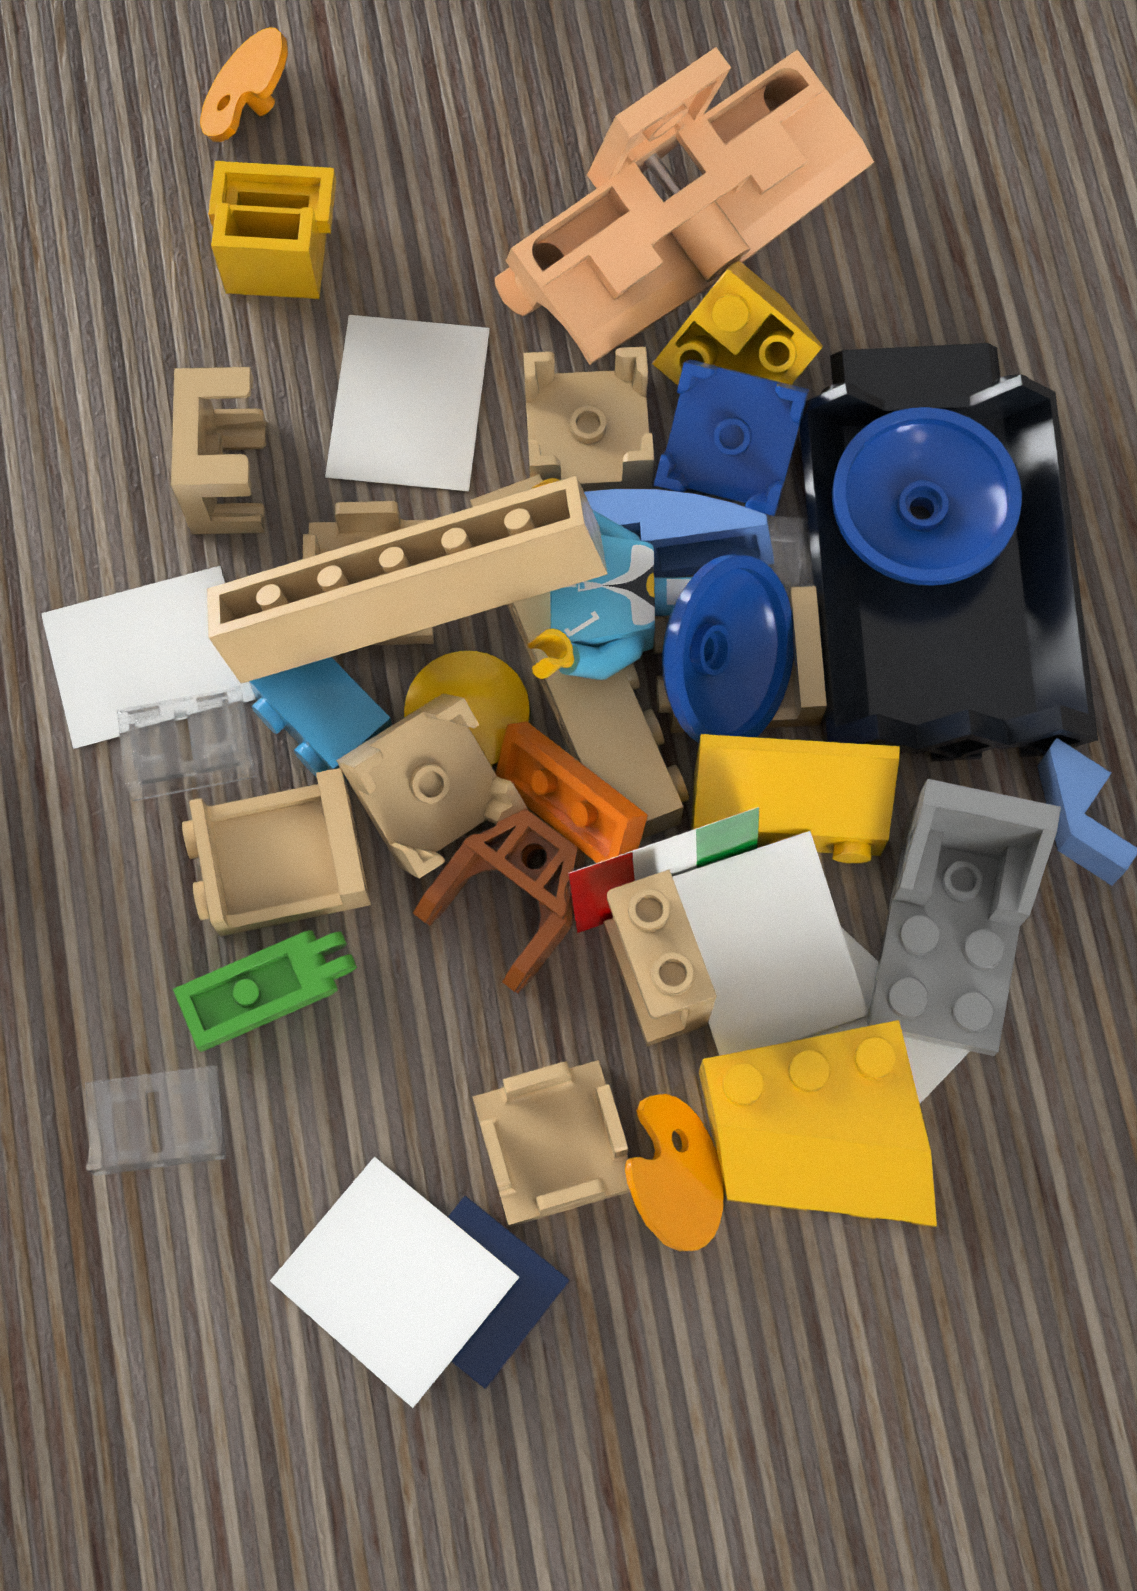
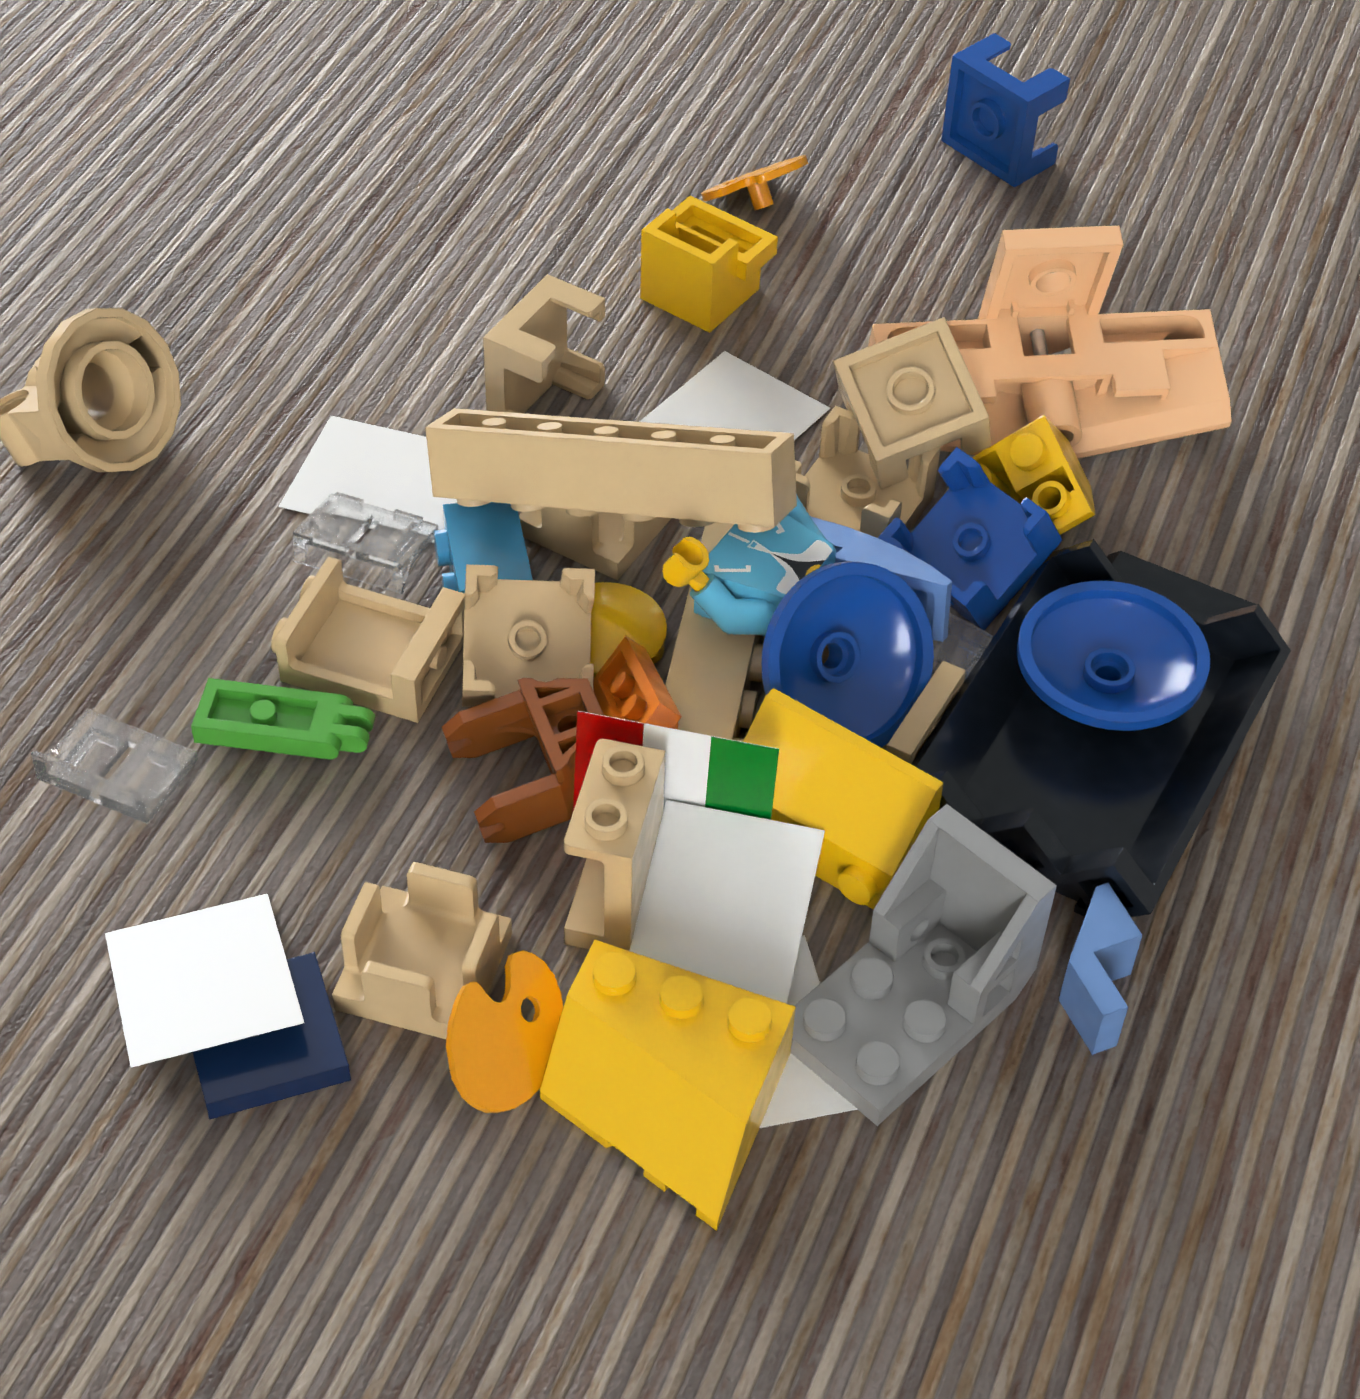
camera: 30 degrees right, 25 degrees down
(605, 322) = (912, 398): none -> tan panel

